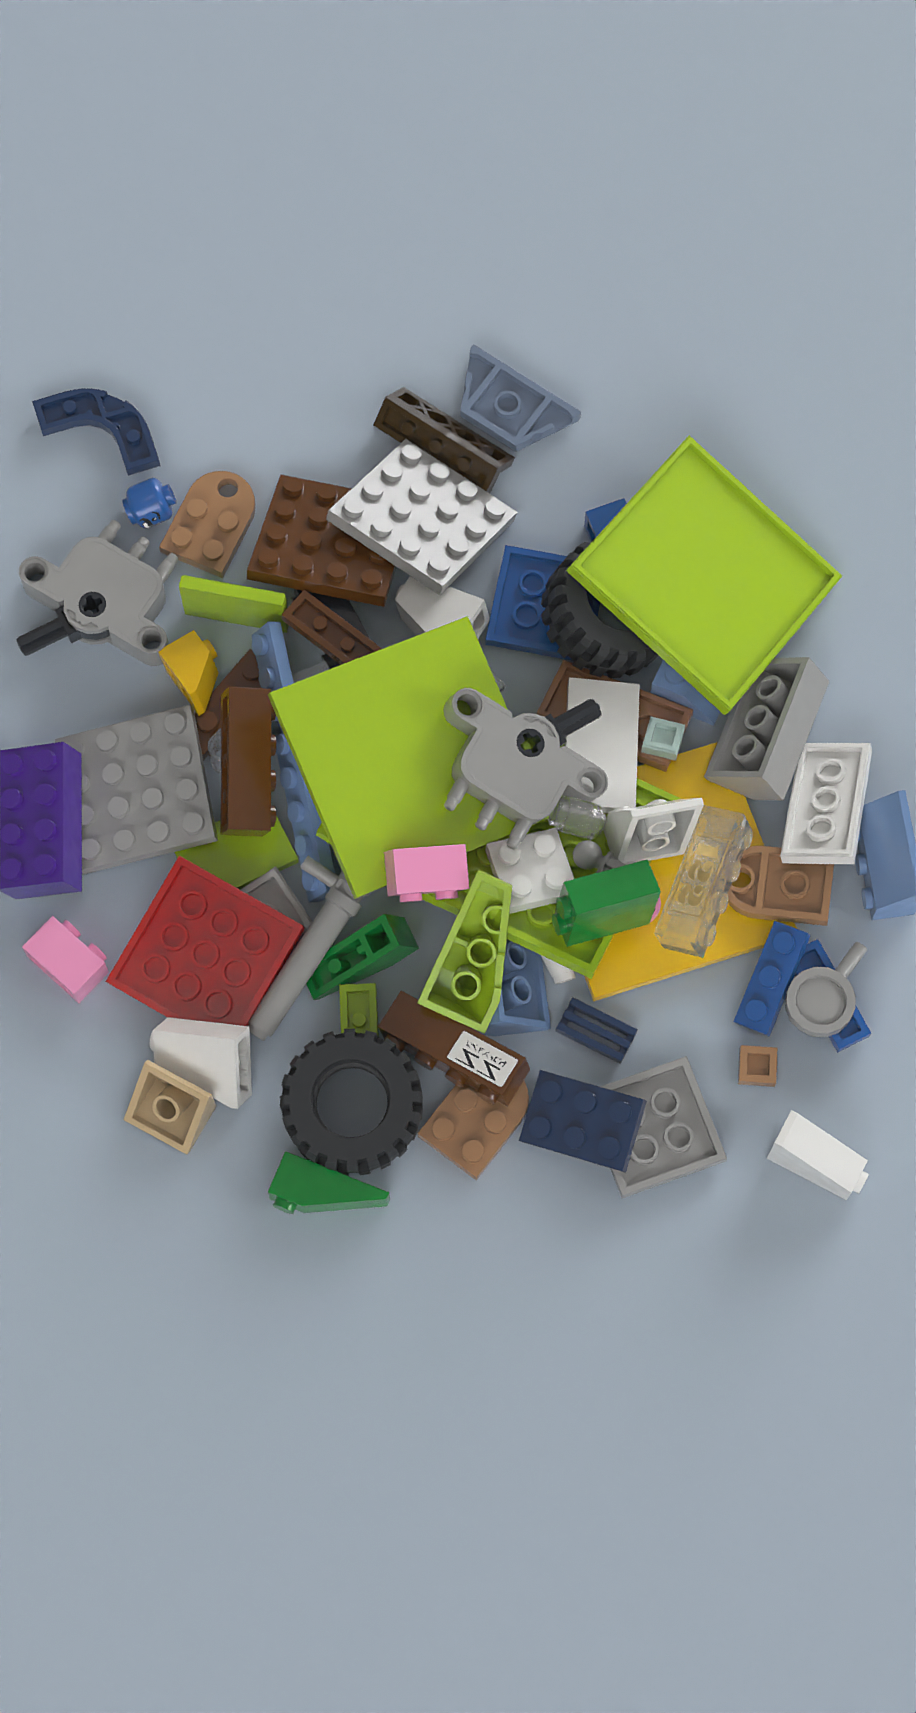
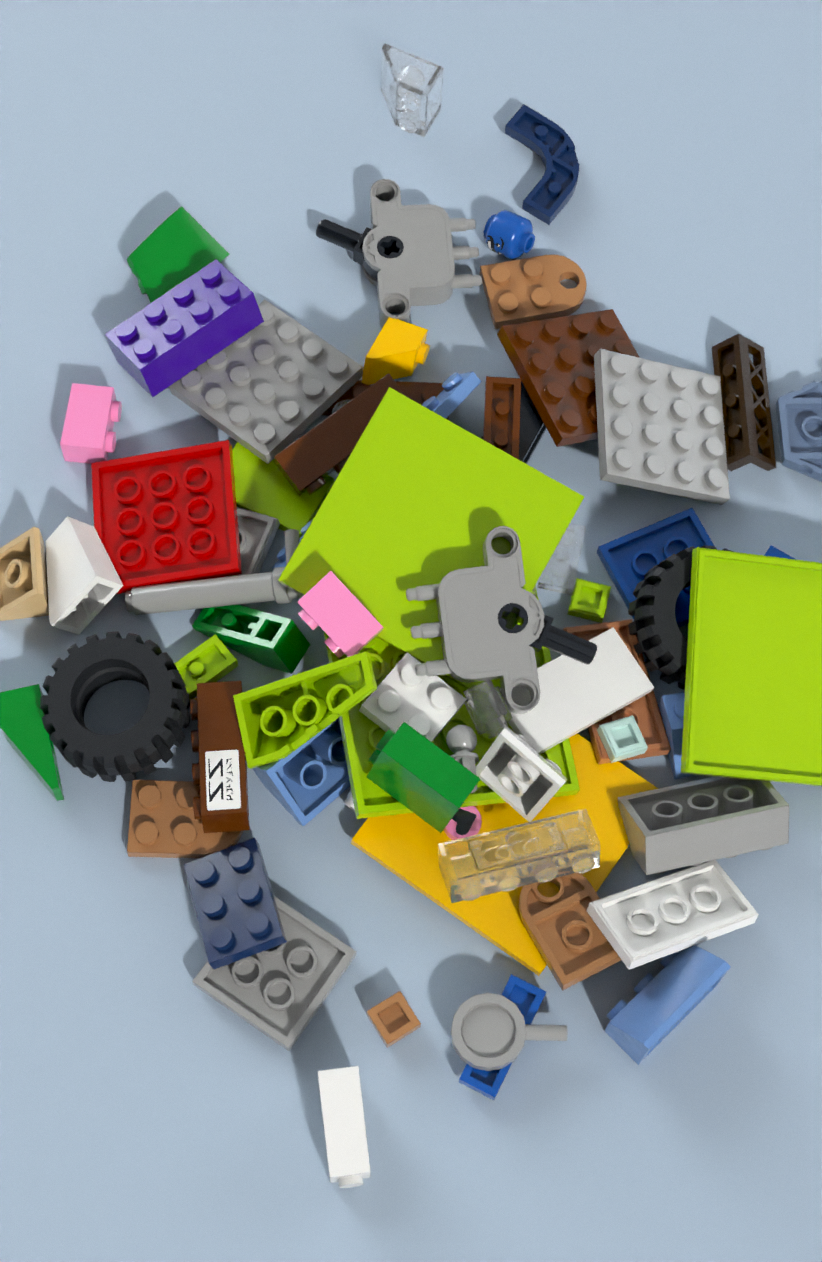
camera: 50 degrees right, 5 degrees down
(231, 602) = (470, 336): lime tile -> none
(426, 610) = (601, 509): white slope -> none
(522, 679) = (589, 600): none -> lime tile
(603, 1018) = (323, 833): dark blue tile -> none
(772, 978) = (481, 974): blue plate -> none

